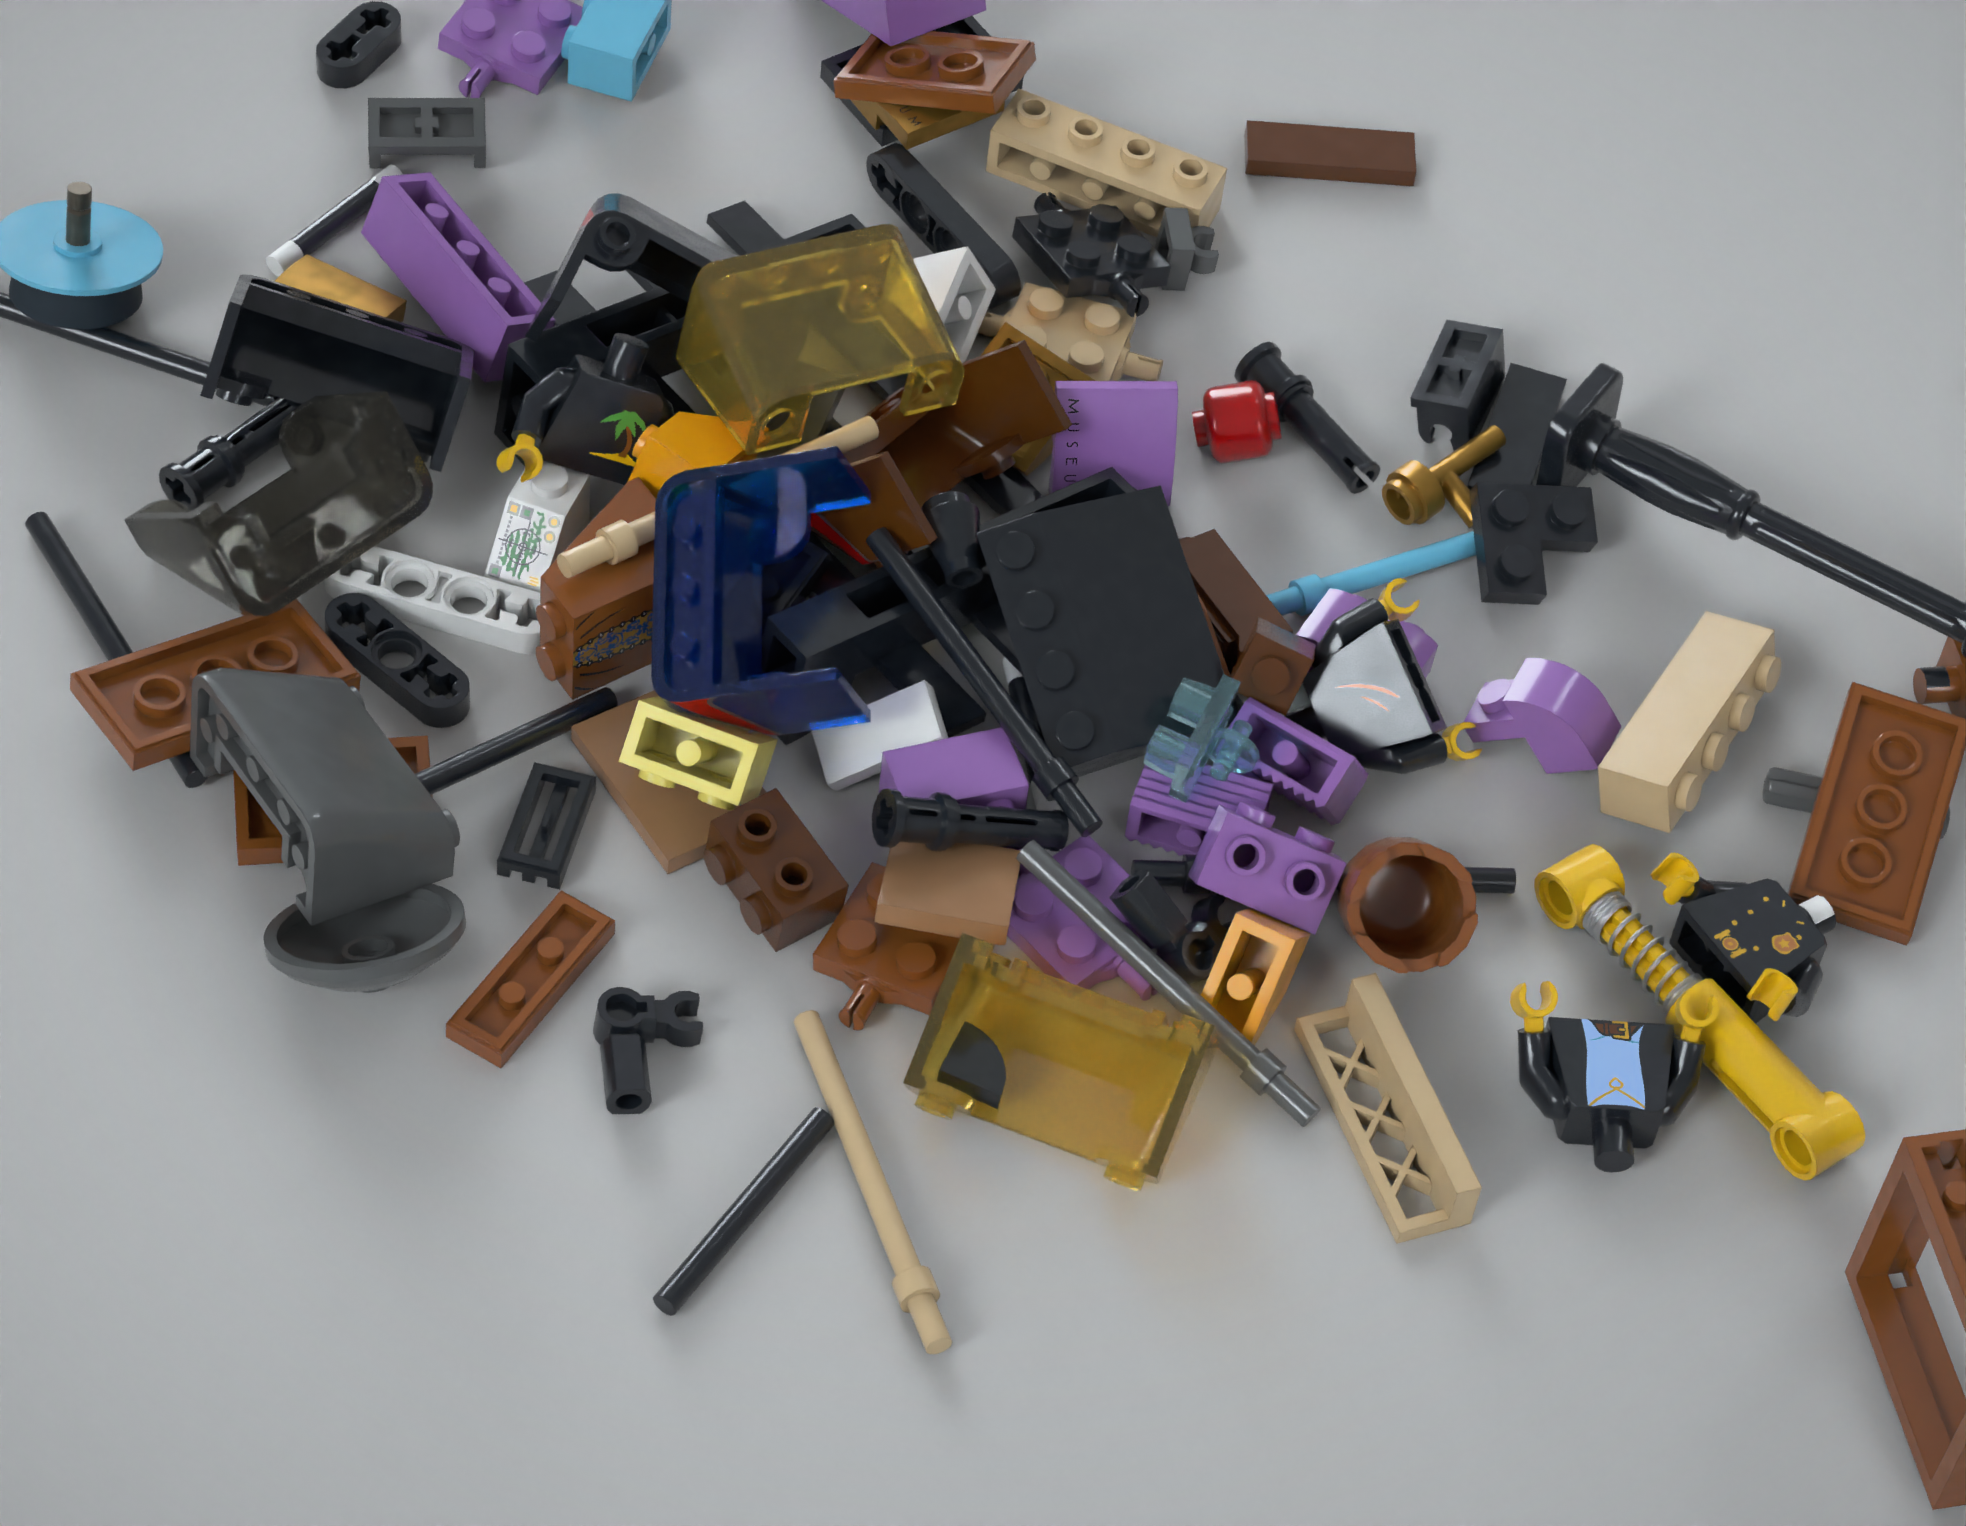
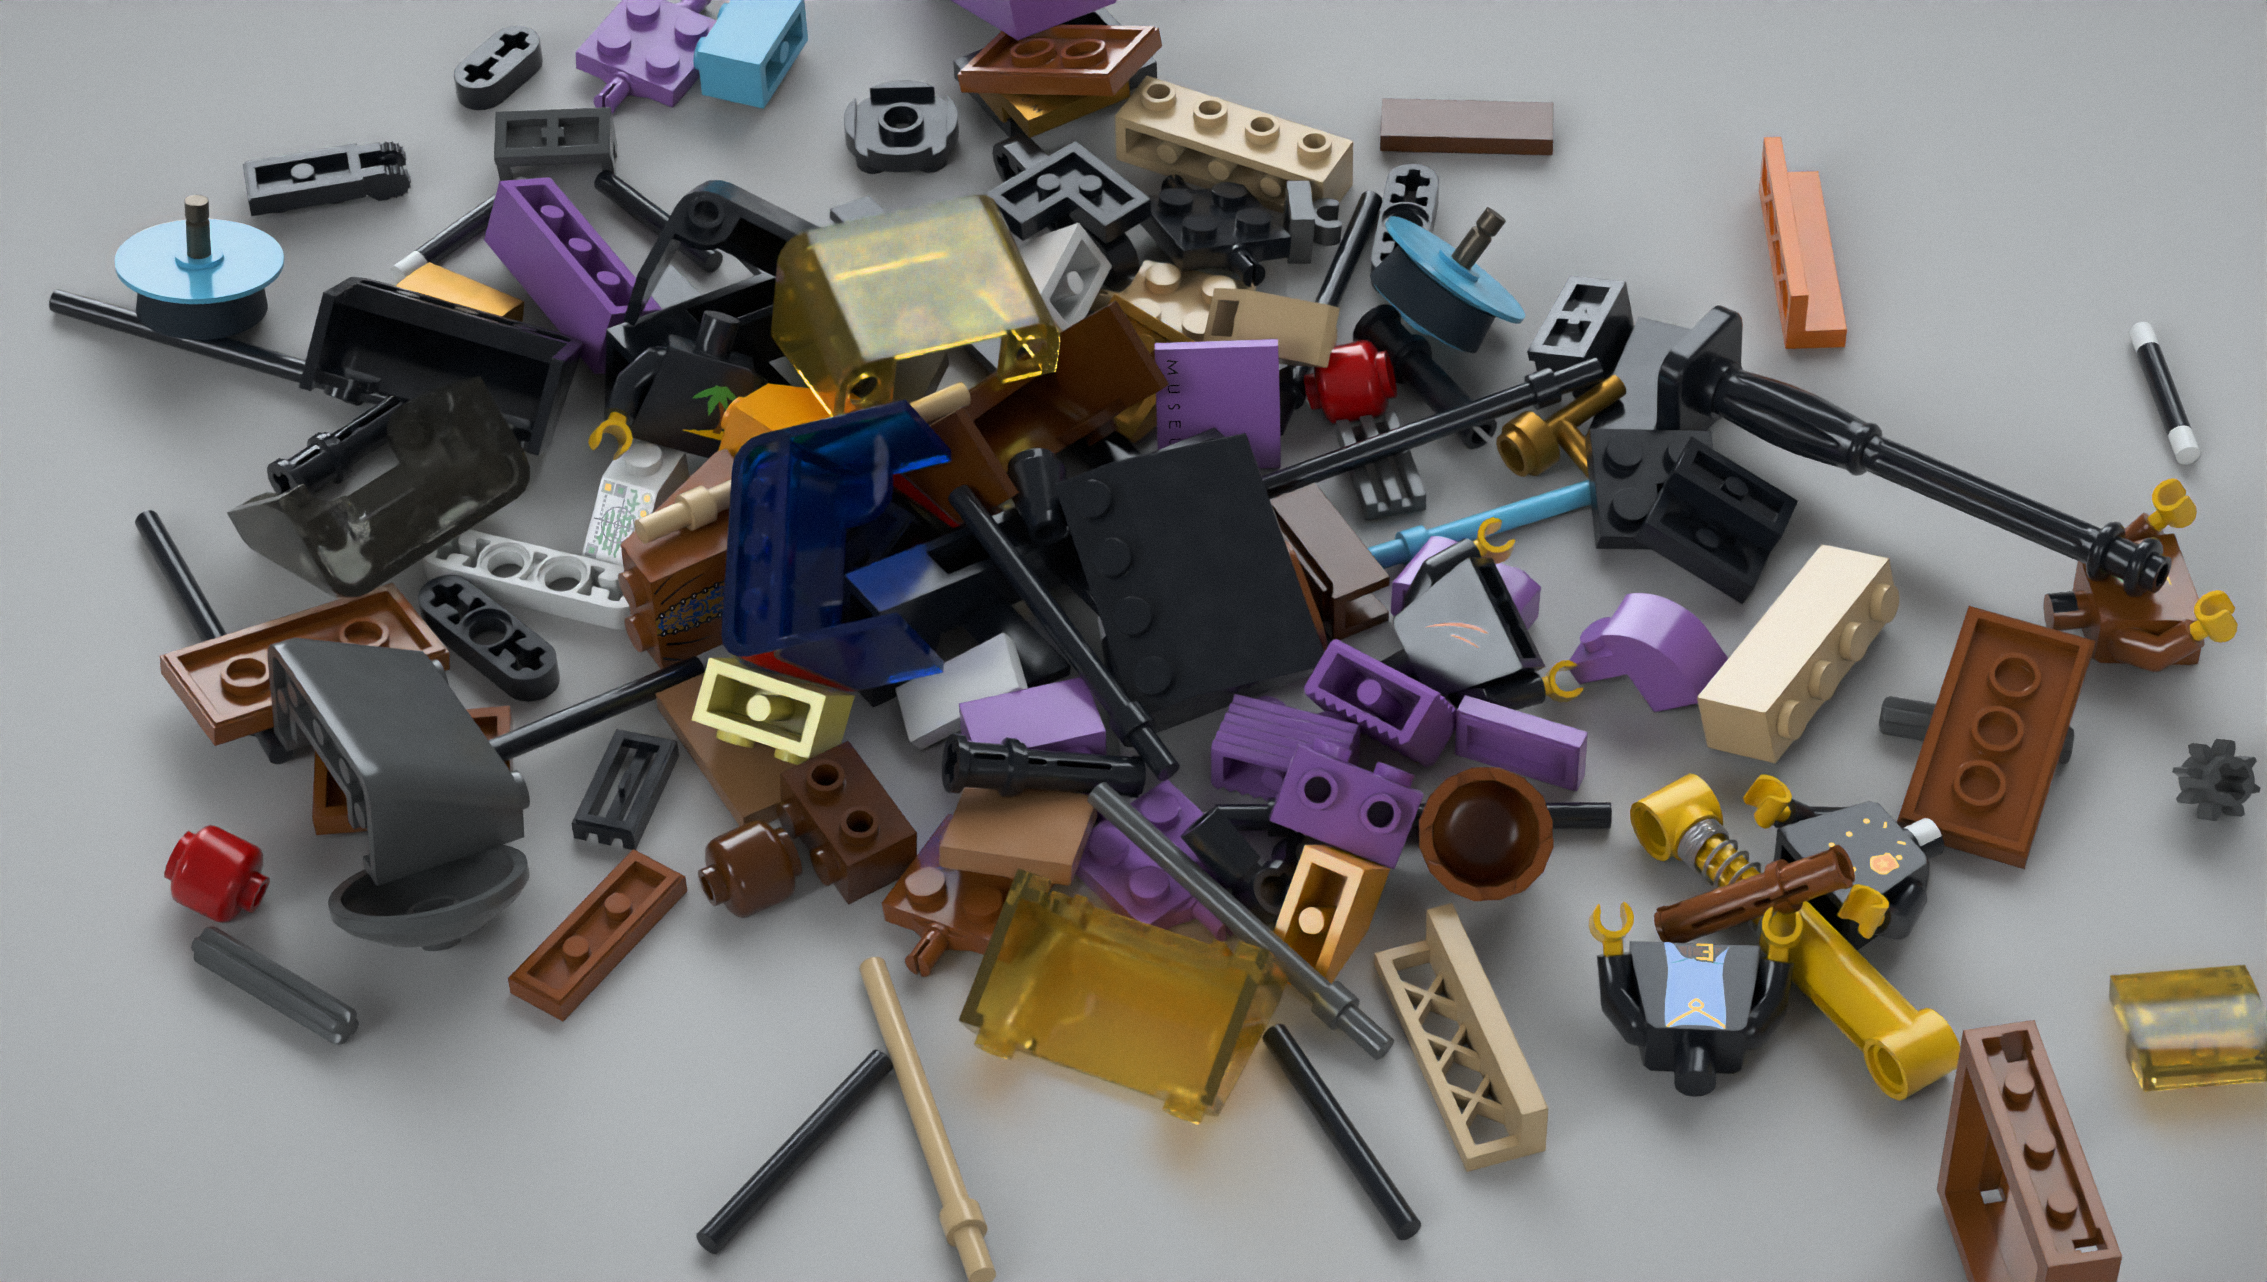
camera: 10 degrees right, 5 degrees down
(144, 906) = (216, 874): none -> red head
(191, 156) = (326, 177): none -> black hinge
(209, 1025) = (275, 985): none -> dark grey axle
(524, 211) = (650, 216): none -> black bar
(623, 1027) = (684, 979): black bar -> none
(680, 914) = (750, 868): none -> reddish brown head
(753, 149) = (882, 147): none -> black plate
(962, 205) = (1075, 185): none -> black plate
(974, 1066) = (1036, 1005): black tile -> none
(1151, 355) = (1303, 328): none -> tan slope
(1209, 326) = (1331, 293): none -> black bar
(1209, 713) = (1291, 683): clear light blue hips -> none
(1259, 473) = (1405, 464): none -> dark grey tile
(1264, 276) = (1422, 212): none -> beam
(1273, 665) = (1361, 609): reddish brown brick -> none
(1276, 1201) = (1342, 1132): none -> black bar
(1325, 328) = (1442, 286): none -> piece
(1424, 440) = (1538, 390): none -> black bar
(1426, 805) = (1521, 743): none -> medium lavender tile
(1600, 580) = (1716, 520): none -> black slope
(1660, 301) = (1800, 253): none -> fence
(1689, 969) = (1779, 886): none -> dark orange pin

